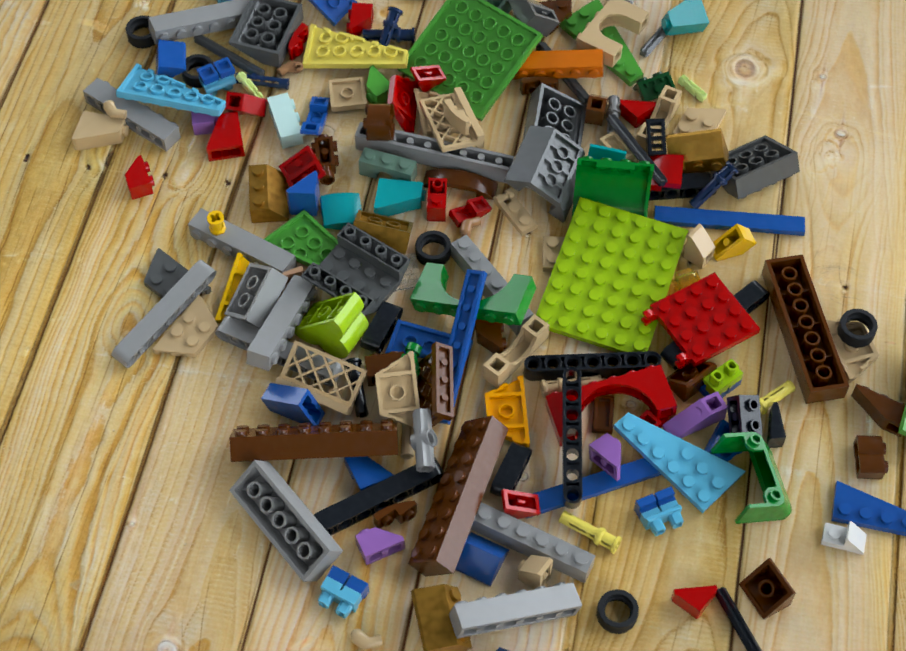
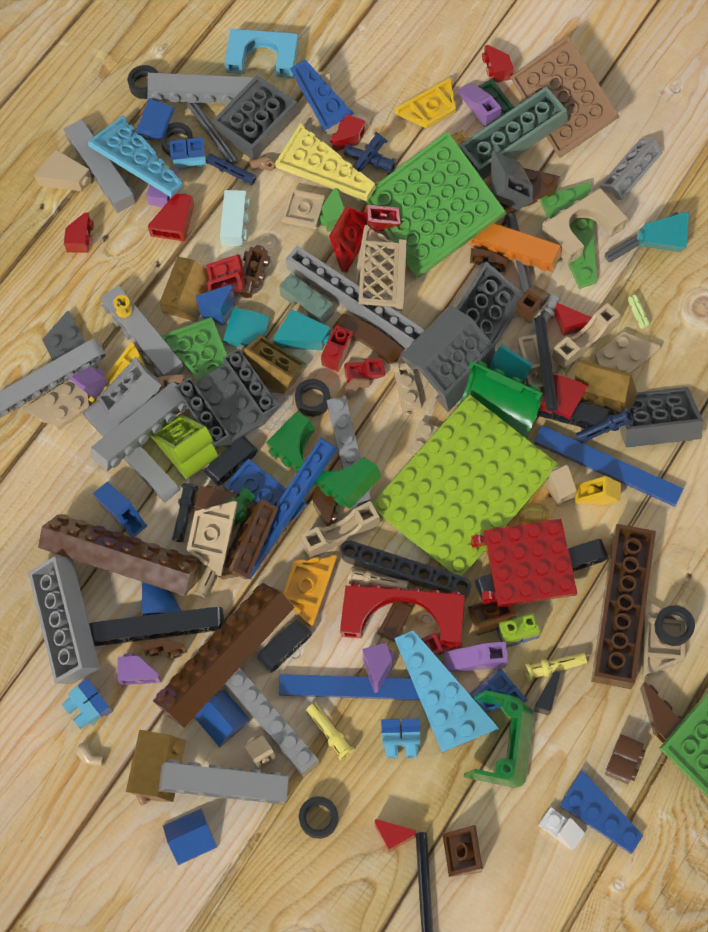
camera: 25 degrees right, 10 degrees up
(112, 111) = (79, 160): tan arm -> none
(213, 299) = (90, 381): none -> medium lavender slope
(245, 104) = (203, 190): red slope -> none
(248, 85) = (215, 172): yellowish green axle -> none
(296, 42) = (276, 141): red slope -> none
(317, 116) = (263, 225): blue slope -> none
(320, 396) = (144, 507): tan fence -> none
(379, 122) = (310, 254): reddish brown brick -> none
(423, 440) = (213, 590): light grey piece -> none
(456, 117) = (385, 273): tan slope -> none
(520, 504) = (274, 682): red slope -> none
(571, 446) = (348, 647): black beam -> none
(651, 88) = (595, 299): dark green bracket -> none
(655, 122) = (579, 344): black slope -> none
(744, 414) = (519, 676): black brick -> none

